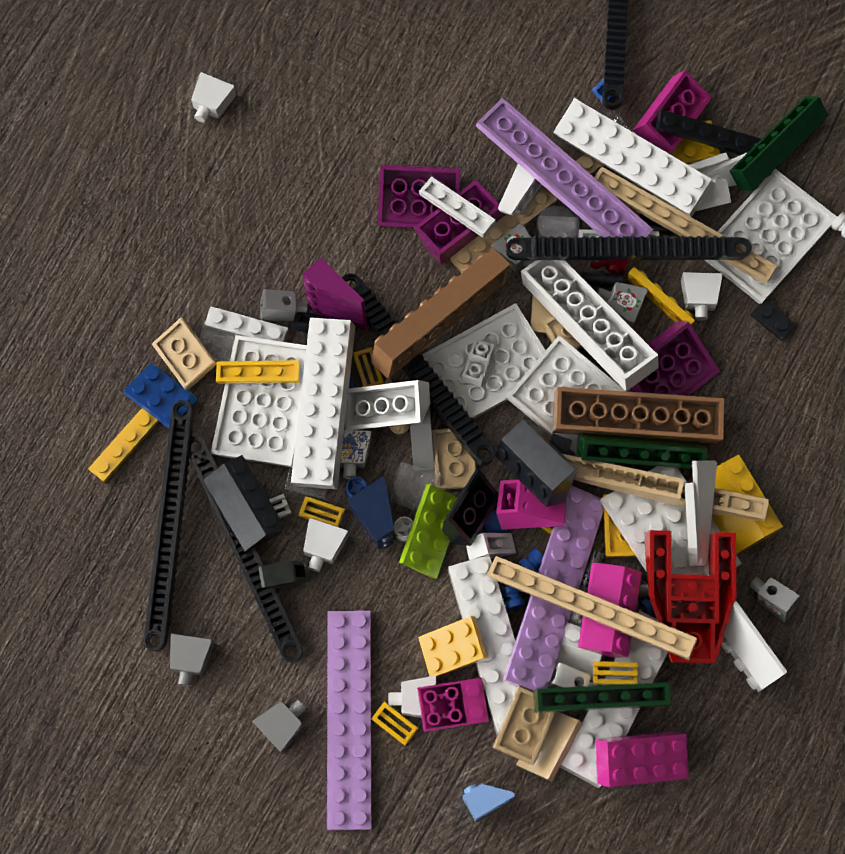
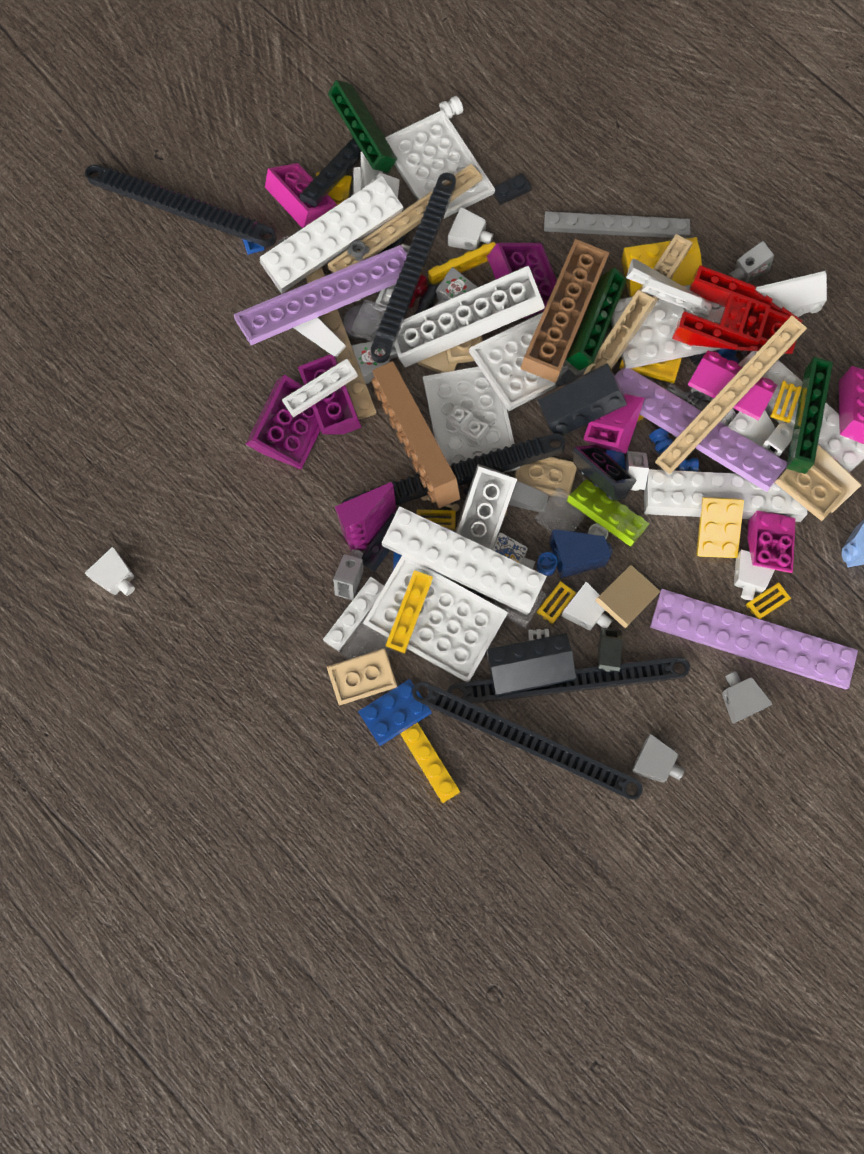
camera: 70 degrees left, 0 degrees up
(347, 577) = (627, 596): none -> tan tile
(630, 185) = (358, 245): none -> dark grey plate
(774, 443) = (616, 225): none -> light grey plate

